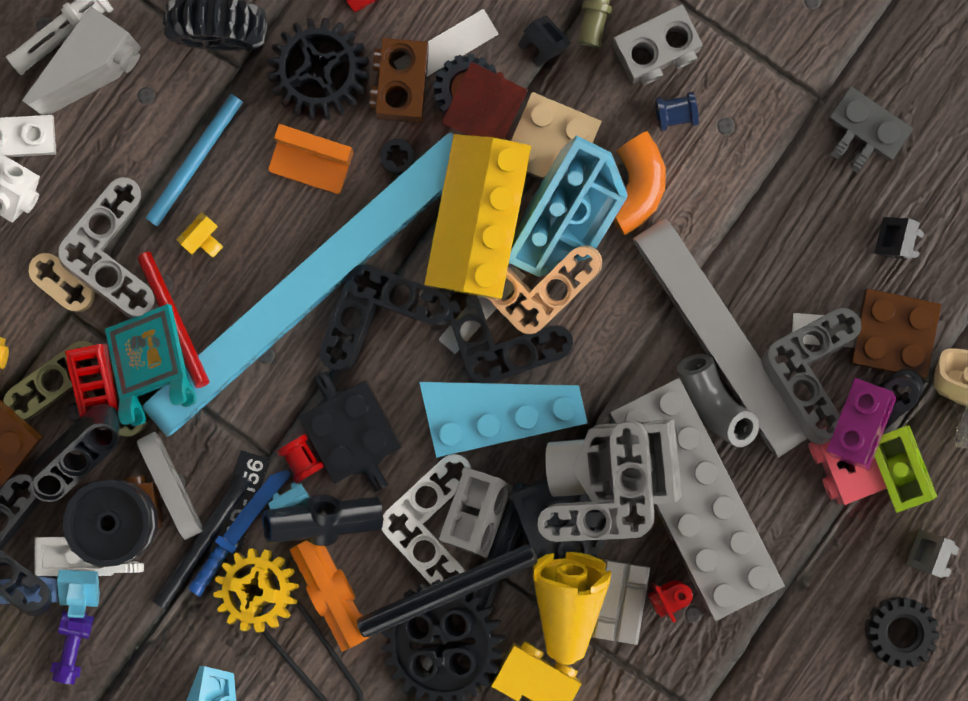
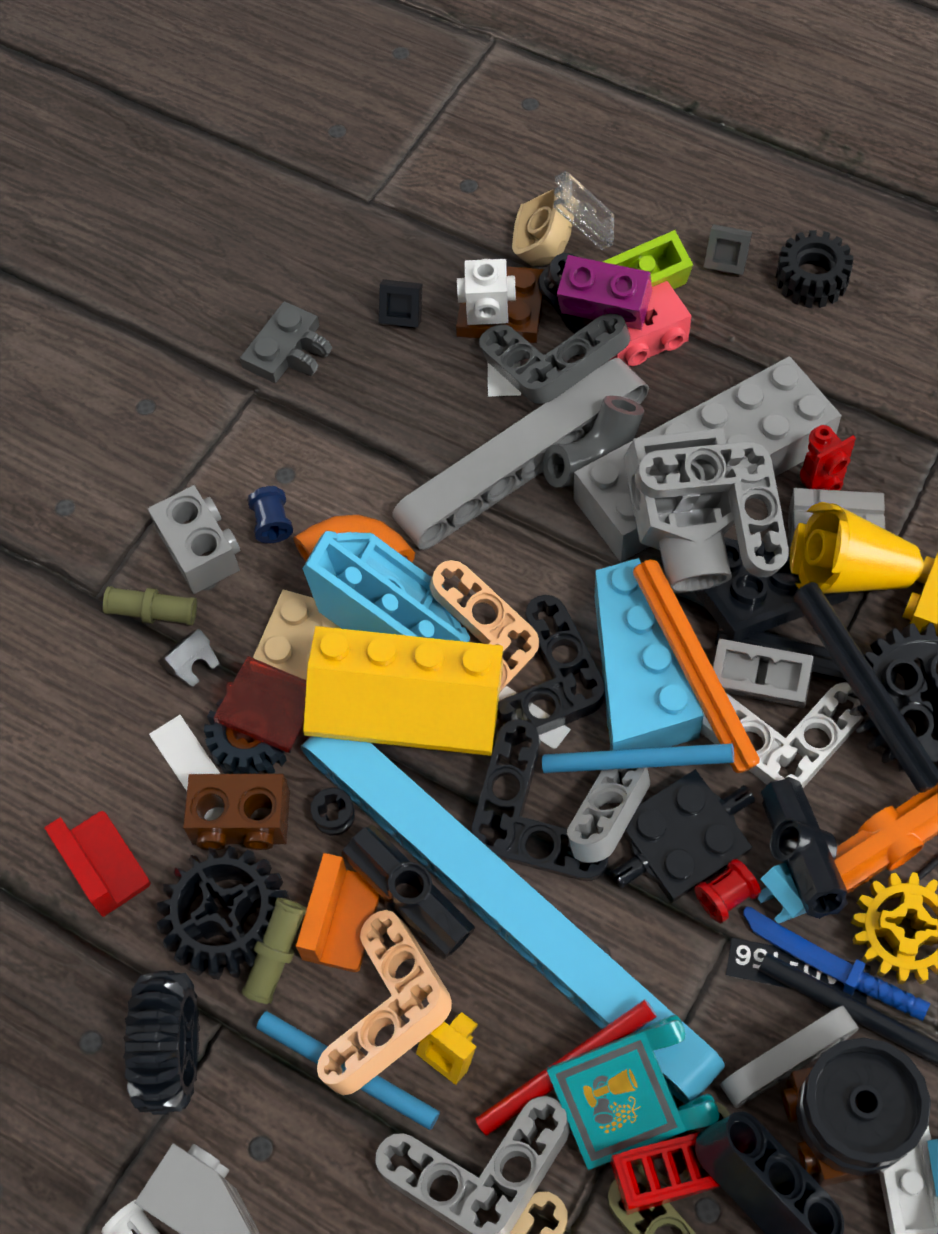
camera: 90 degrees left, 25 degrees down
(230, 204) = (405, 999): none -> light nougat beam
(281, 109) = (274, 951): none -> olive pin
(302, 228) = (429, 912): none -> black piece
(355, 375) = (611, 823): none -> light grey beam
(409, 401) = (638, 758): none -> dark azure bar
(479, 455) = (695, 664): none -> orange axle
(873, 321) = (486, 291): none -> white brick

